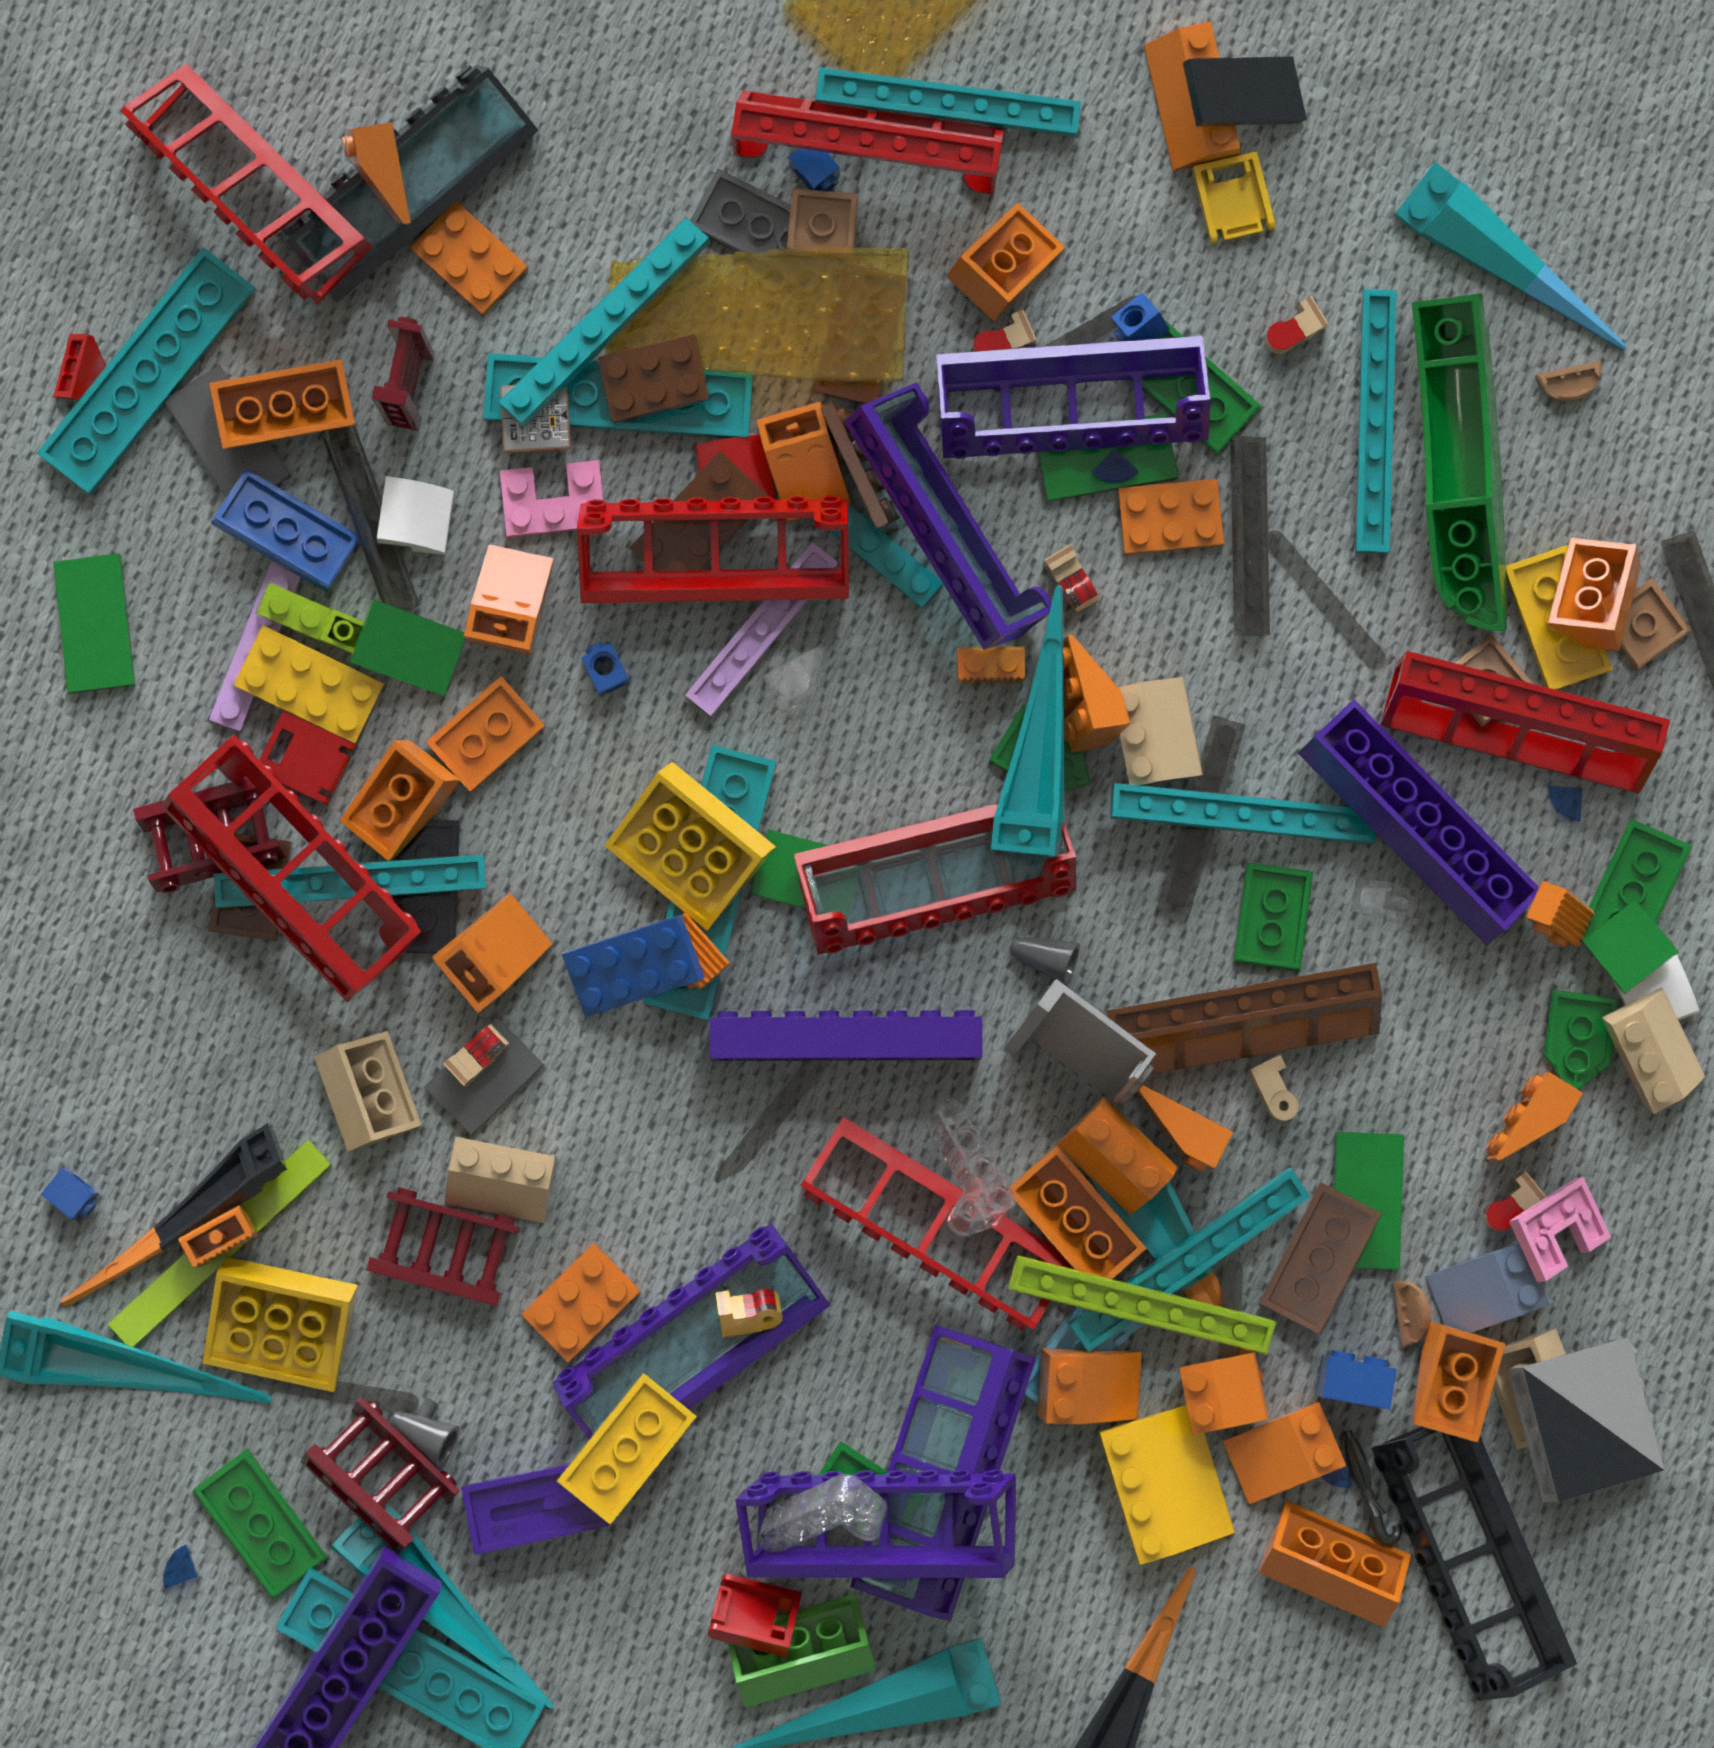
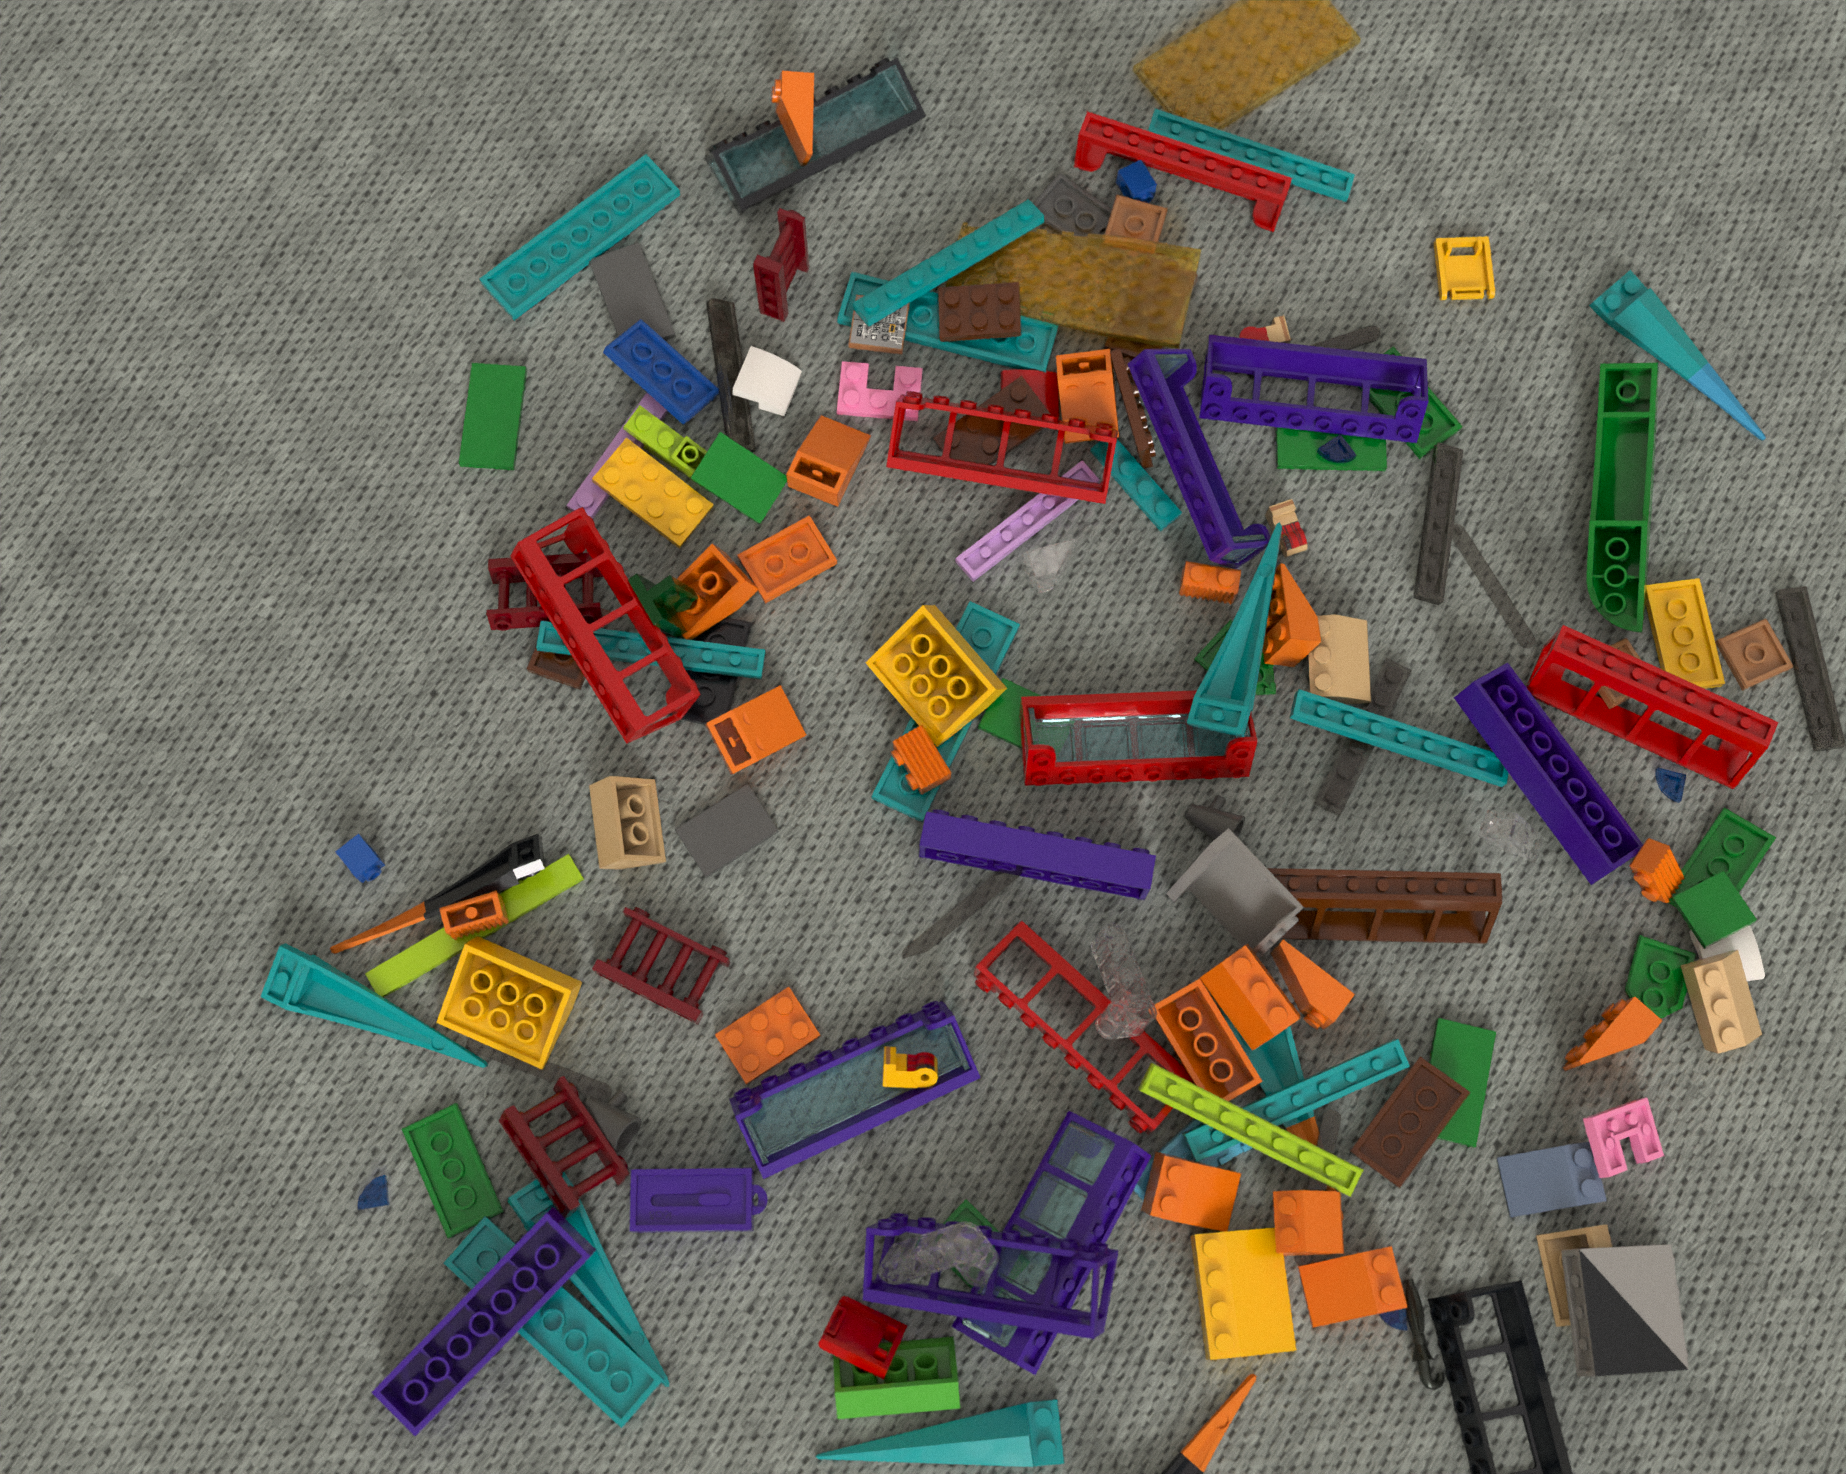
camera: 10 degrees right, 10 degrees down
(79, 367) = (530, 223): red slope -> none
(264, 157) = (707, 88): window -> none
(281, 404) = (680, 272): orange slope -> none
(310, 759) = (643, 547): red container -> none
(352, 826) = (664, 601): none -> dark green bracket
(469, 258) = (851, 202): orange plate -> none
(476, 1055) = (724, 810): leg -> none
(500, 1179) = (721, 917): tan slope -> none
(605, 683) = (895, 537): blue brick -> none
(626, 1448) = (780, 1164): yellow plate -> none
(633, 965) = (870, 760): blue plate -> none
(1005, 261) = (1273, 280): orange slope -> none
(1139, 321) = (1376, 339): blue brick -> none
(1170, 516) = (1375, 497): orange plate -> none
(1185, 141) = (1444, 187): orange slope -> none
(1244, 91) = (1487, 186): black tile -> none
(1272, 1090) = (1389, 971): tan leg -> none
(1273, 916) = (1410, 828): green tile -> none
(1289, 334) = (1497, 375): leg -> none
(1335, 1564) = (1382, 1397): orange slope -> none
(1354, 1381) = (1426, 1234): blue brick -> none
(1375, 421) = (1554, 456): teal plate -> none
(1412, 1312) = (1482, 1187): medium nougat plate -> none
(1456, 1381) = (1515, 1250): orange slope -> none
(1499, 1213) = (1571, 1115): leg -> none
(1571, 382) = (1716, 455): medium nougat plate -> none
(1595, 592) = (1720, 617): orange slope -> none

